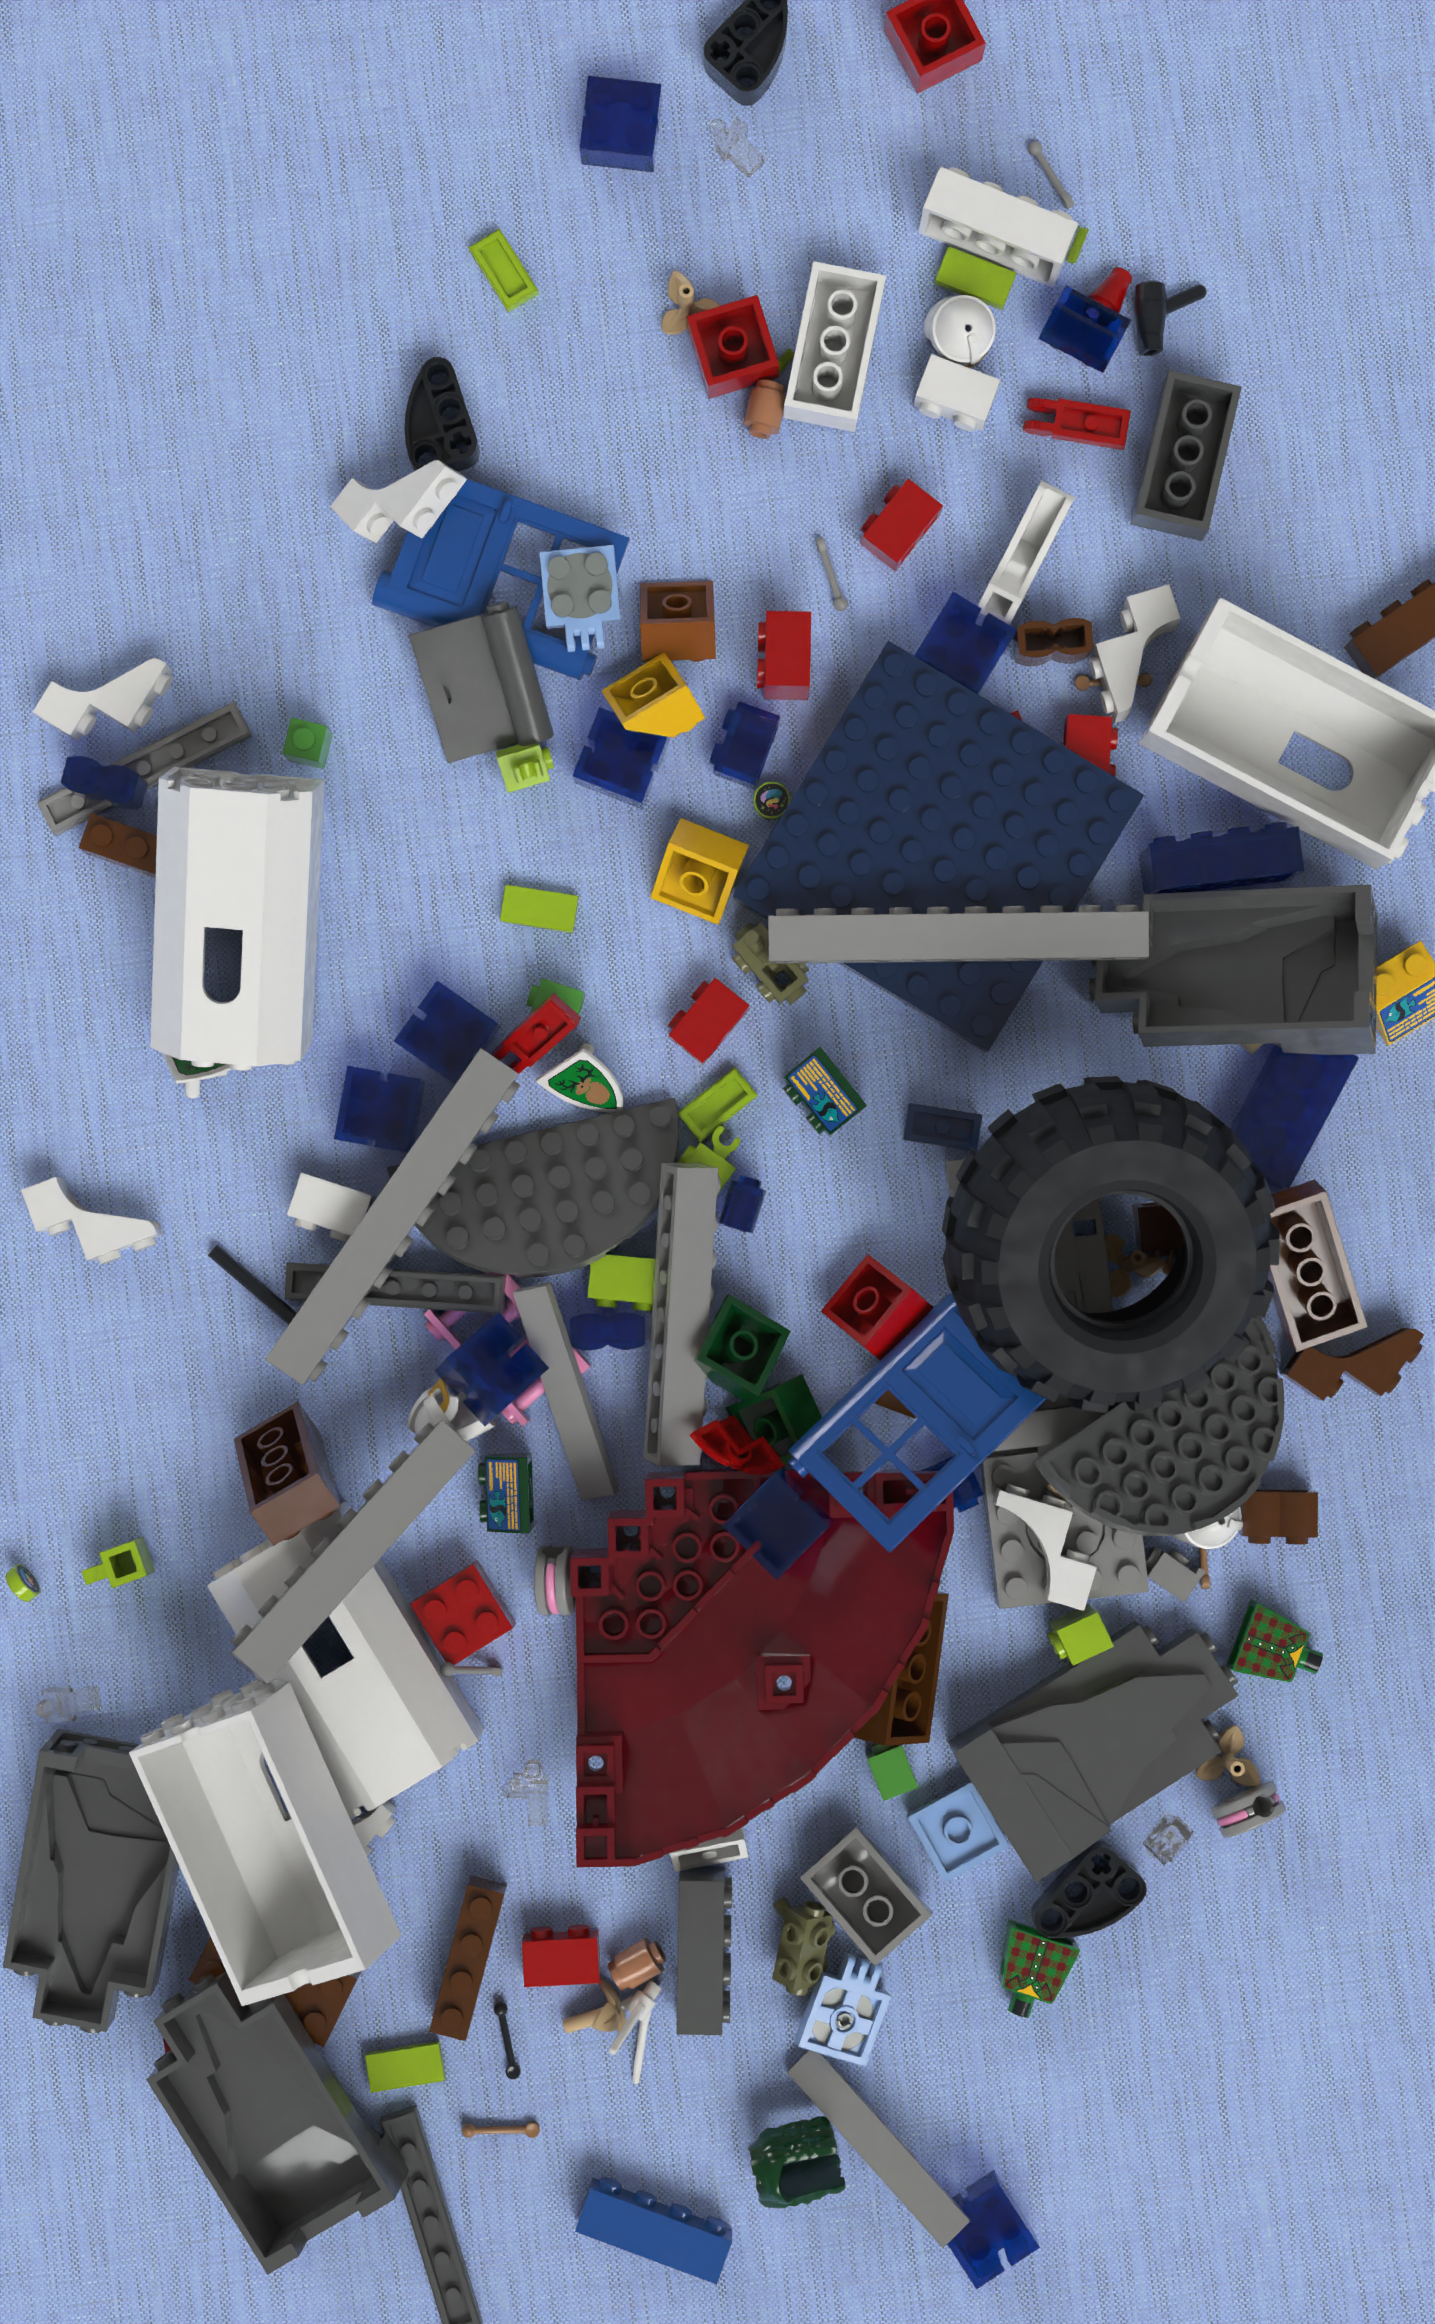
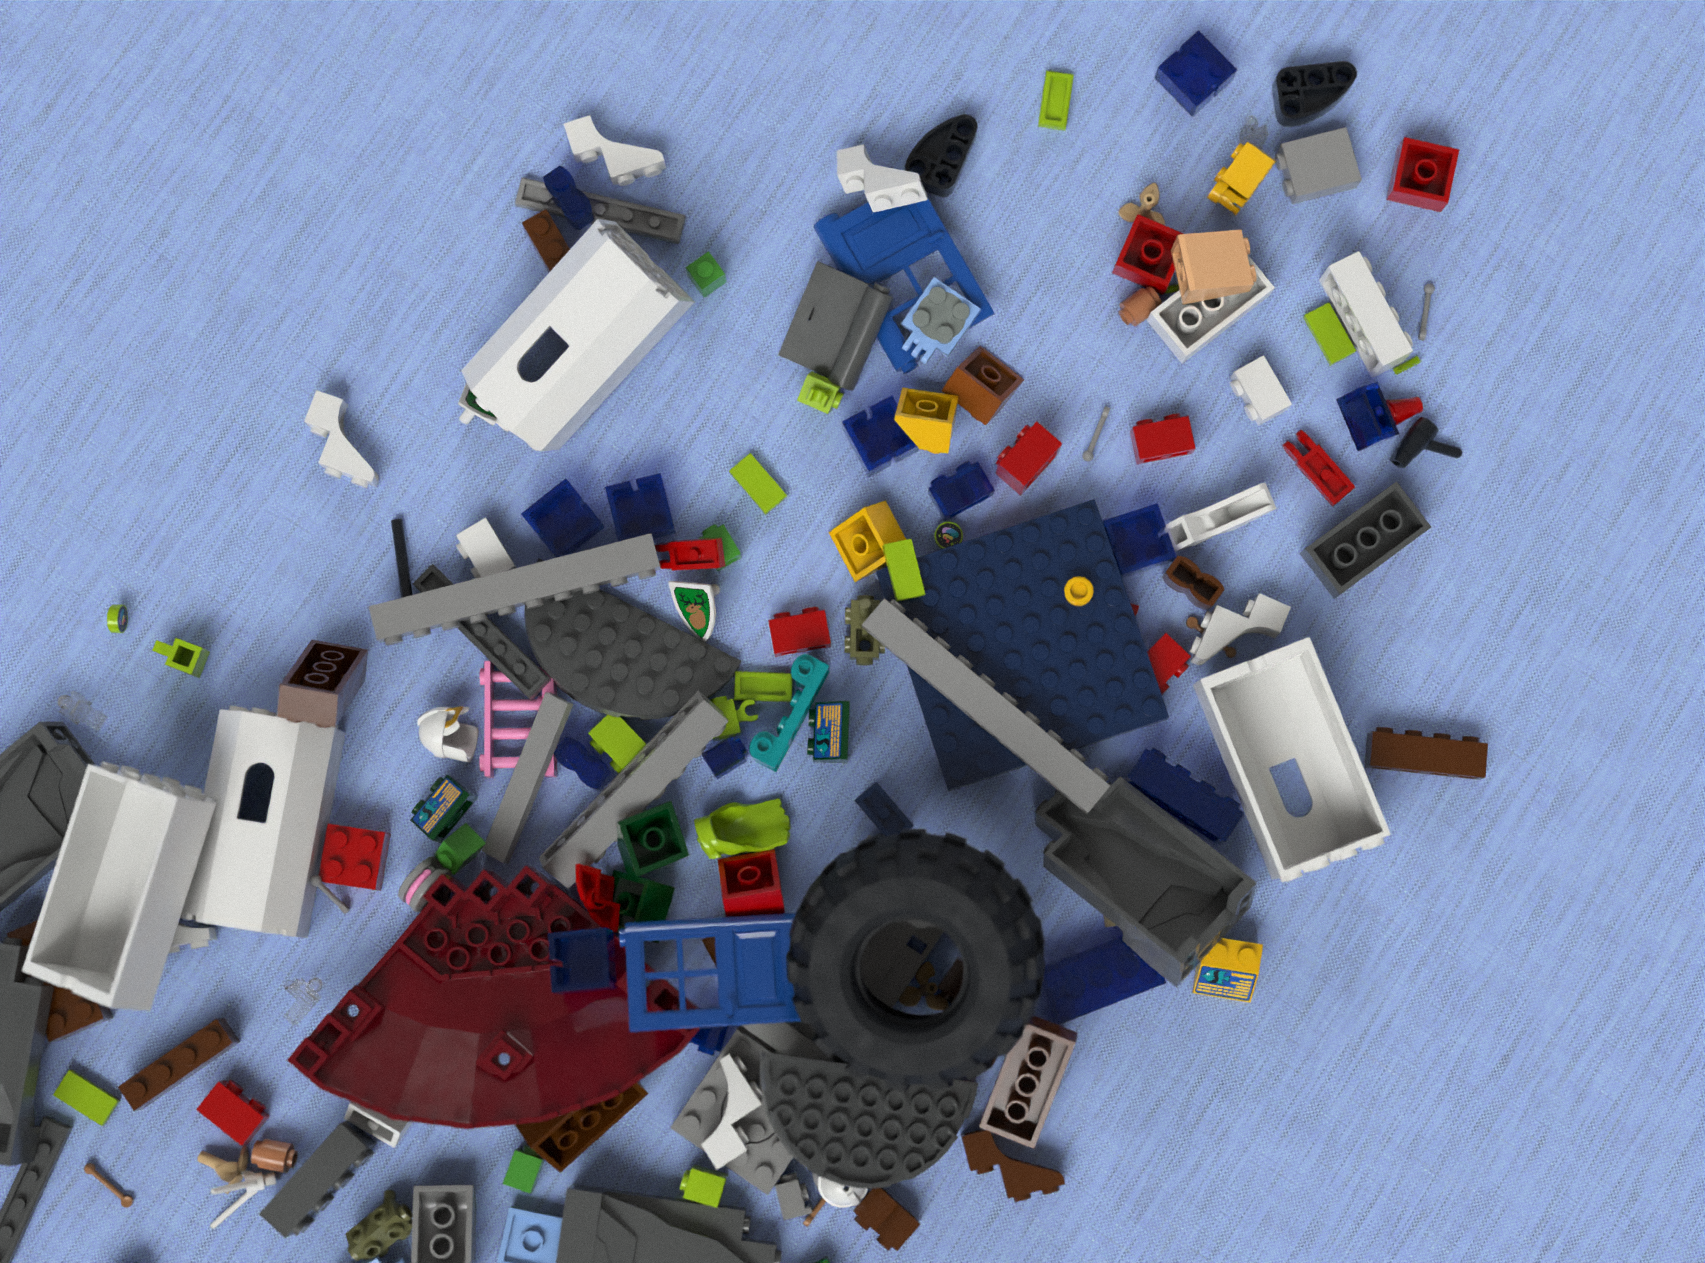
camera: 35 degrees right, 5 degrees down
(352, 1552) = (319, 759): light grey brick -> none
(487, 1371) = (491, 725): clear blue piece -> none
(513, 2069) = (147, 1155): black hinge -> none
(559, 1517) = (459, 848): none -> bright green brick
(757, 191) = (1241, 177): none -> yellow hinge
(757, 1055) = (810, 676): none -> teal piece
(761, 871) = (903, 570): none -> lime tile
(807, 304) = (1212, 265): none -> light nougat slope
(819, 1259) = (743, 828): none -> lime hair
(822, 115) = (1318, 166): none -> light grey brick
(947, 331) = (1282, 354): white helmet -> none
(951, 745) = (1078, 591): none -> yellow tile

